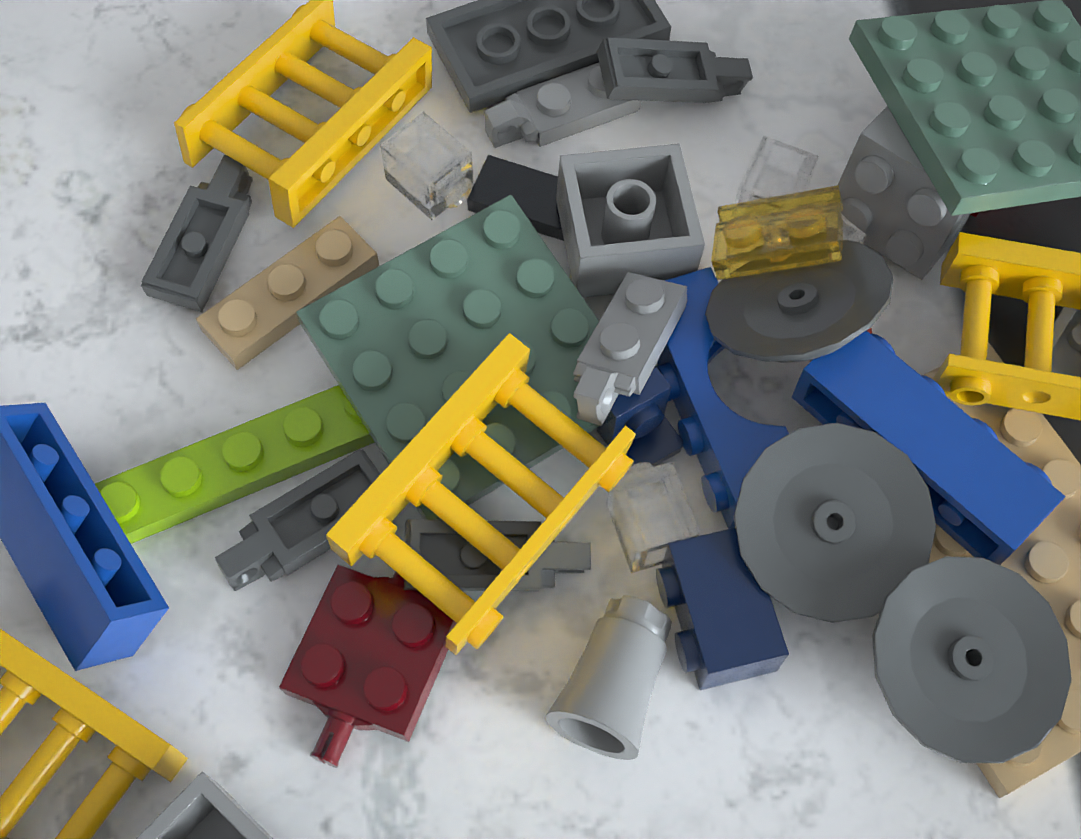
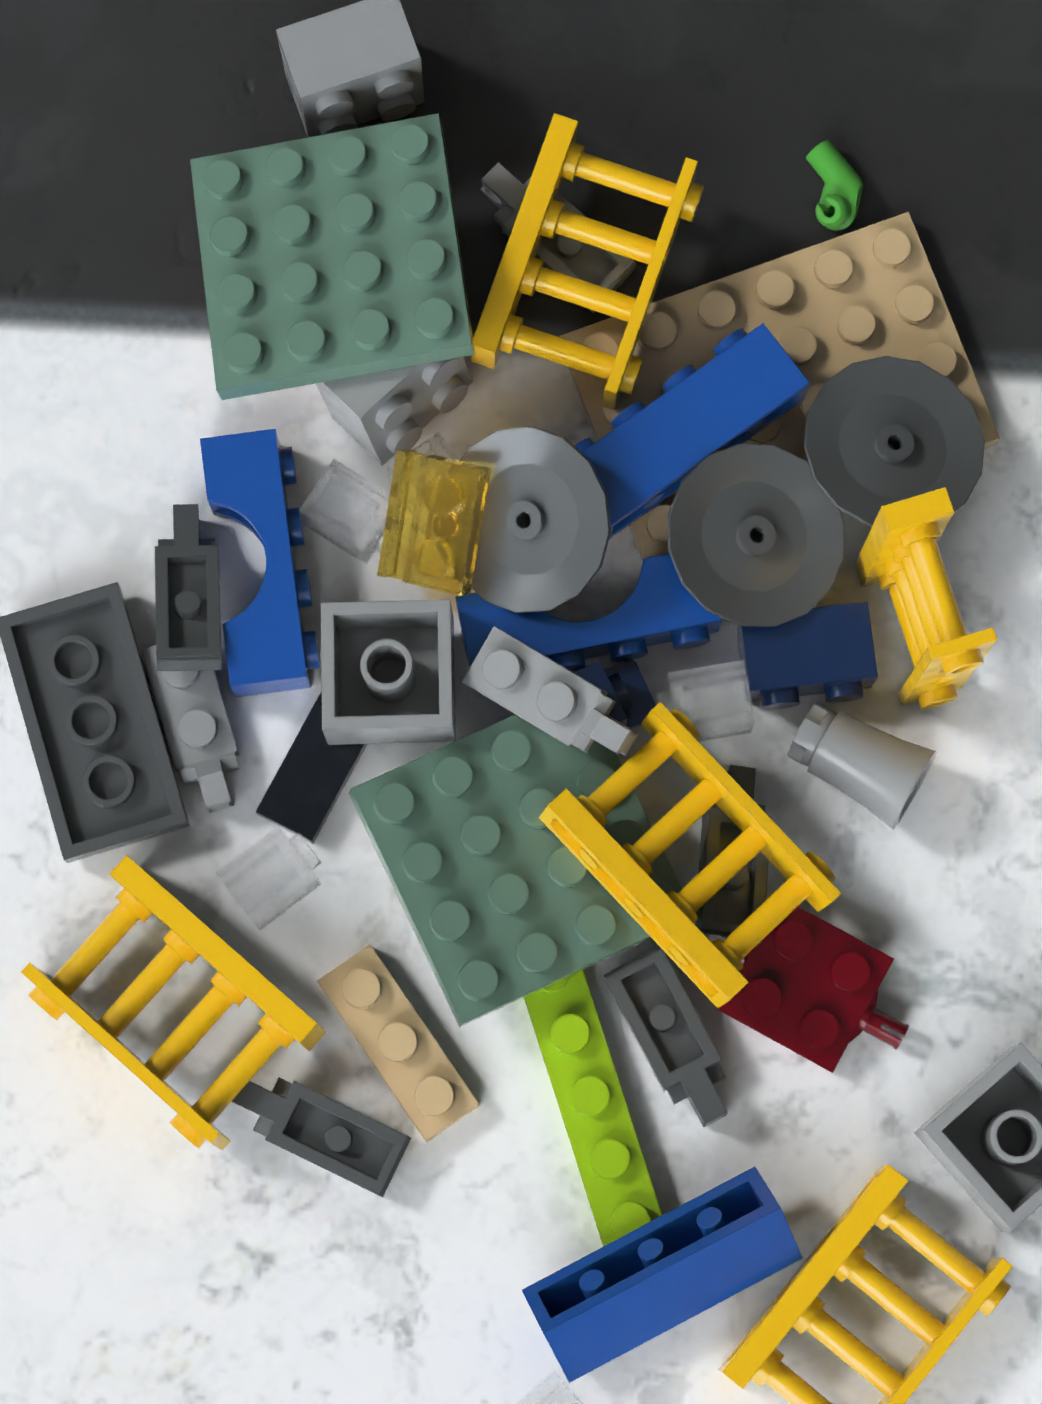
camera: 80 degrees left, 15 degrees up
(783, 104) = (267, 639): none -> blue arch
(844, 679) = (907, 562): none -> yellow fence

